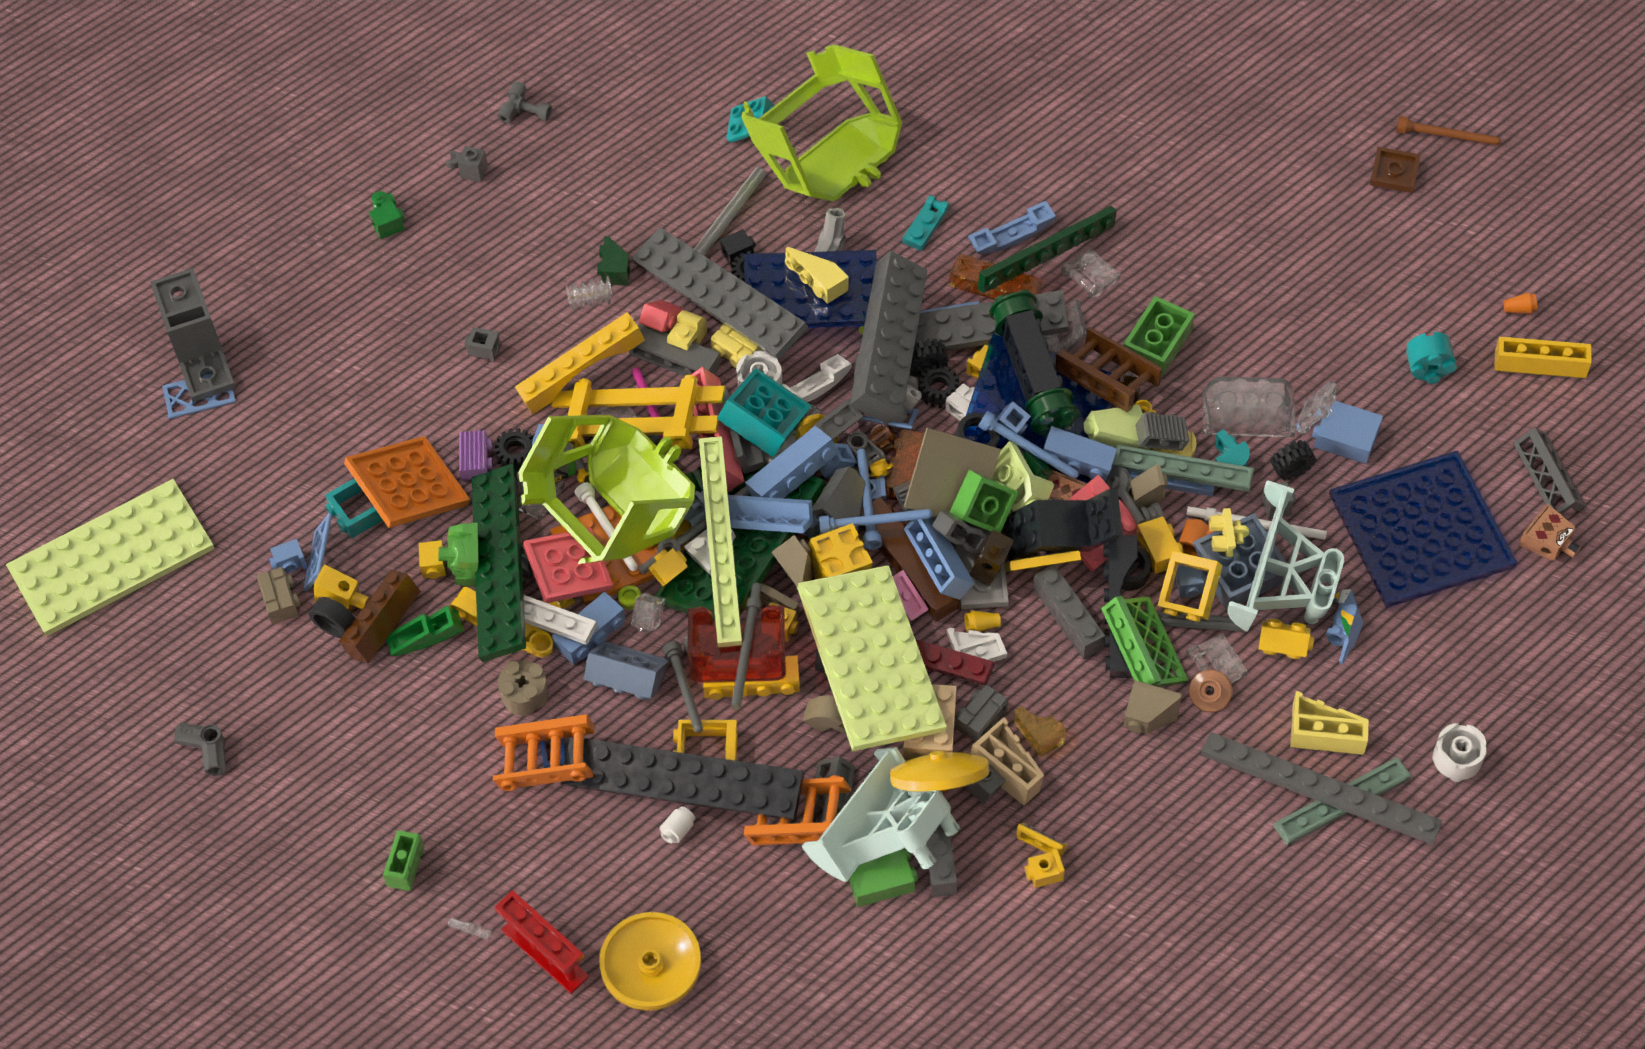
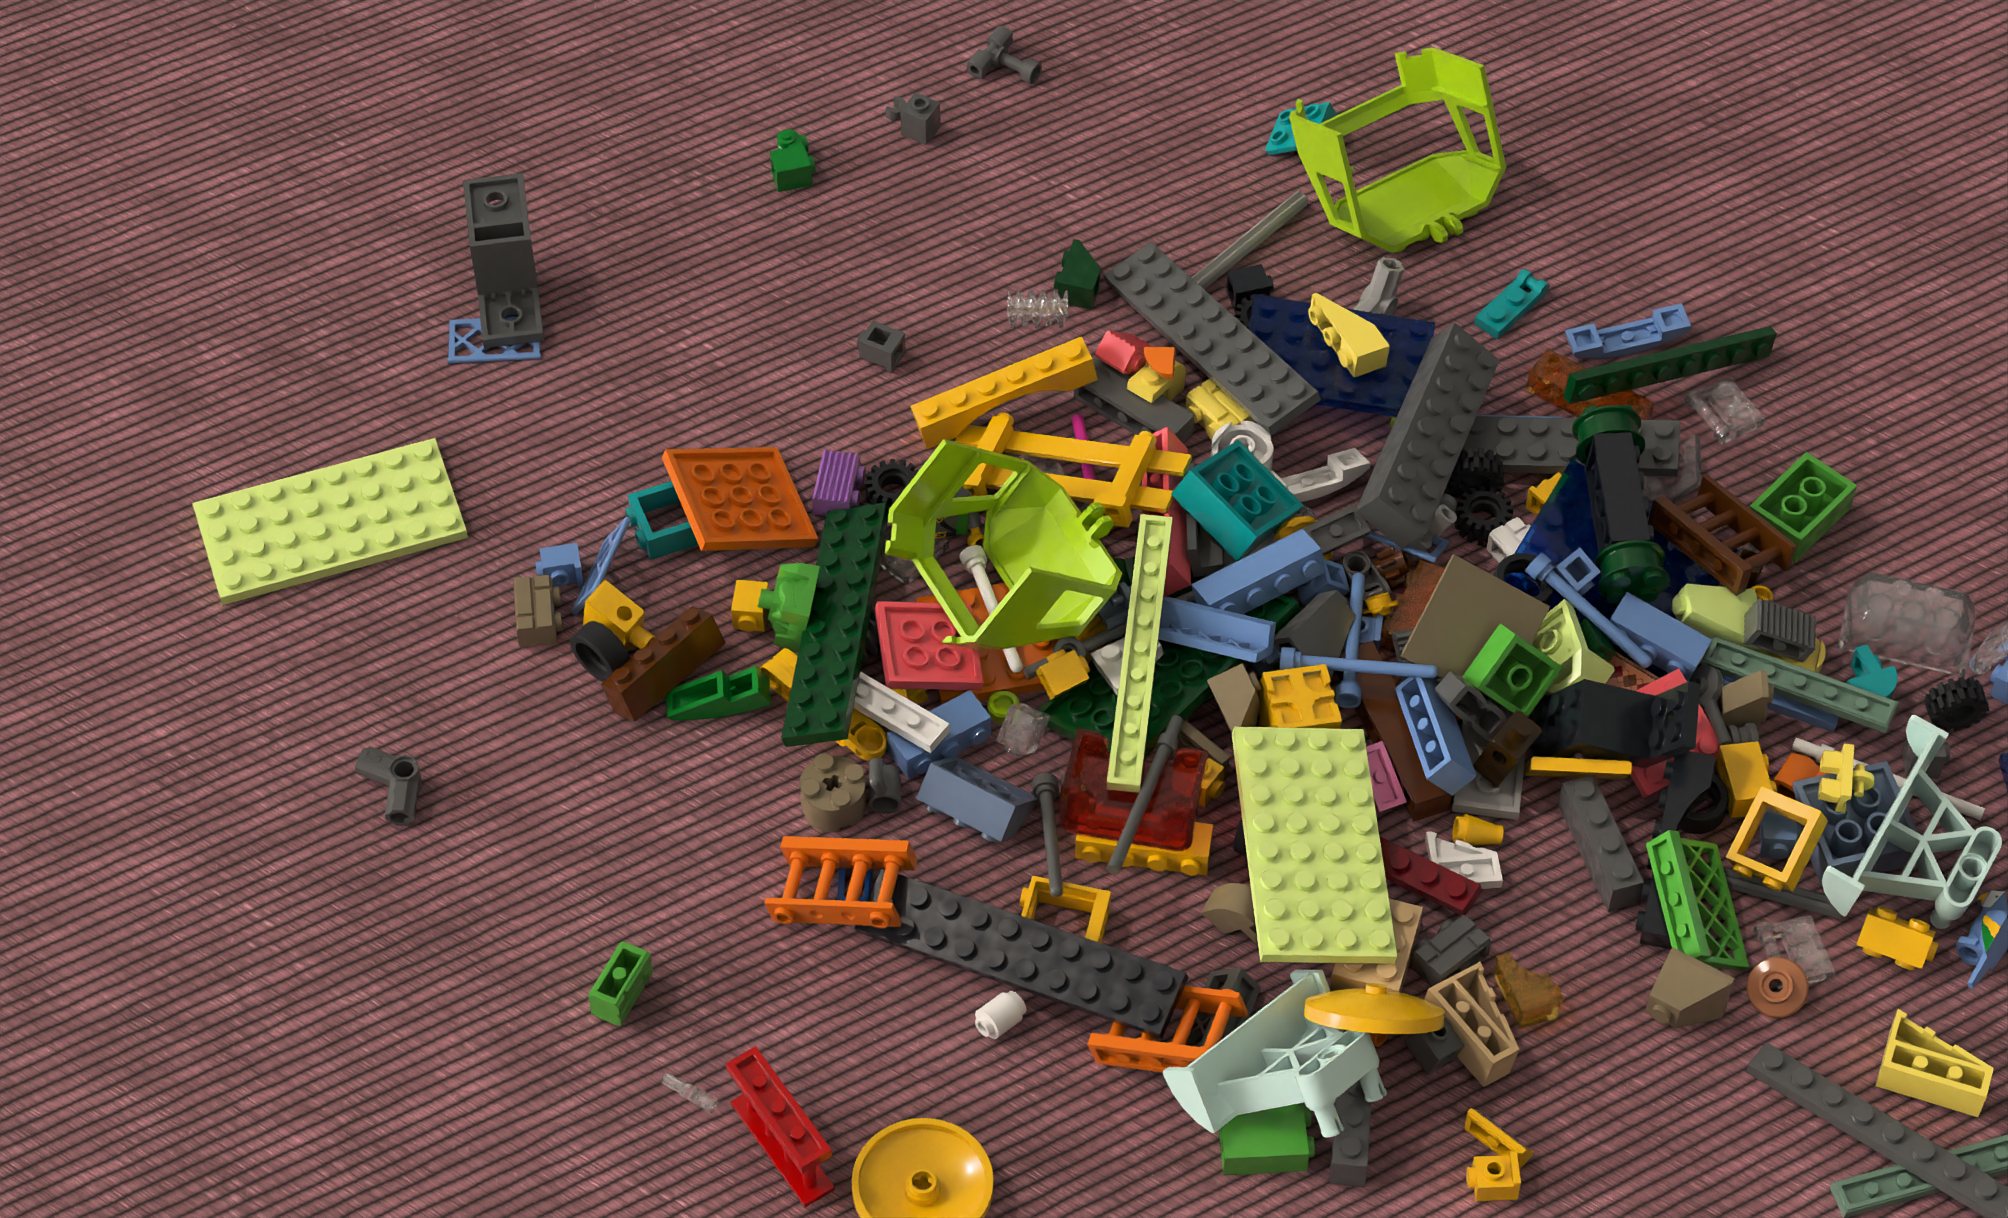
camera: 10 degrees right, 5 degrees down
(559, 676) = (884, 787): none -> dark grey piece
(688, 318) = (1161, 360): none -> orange tile

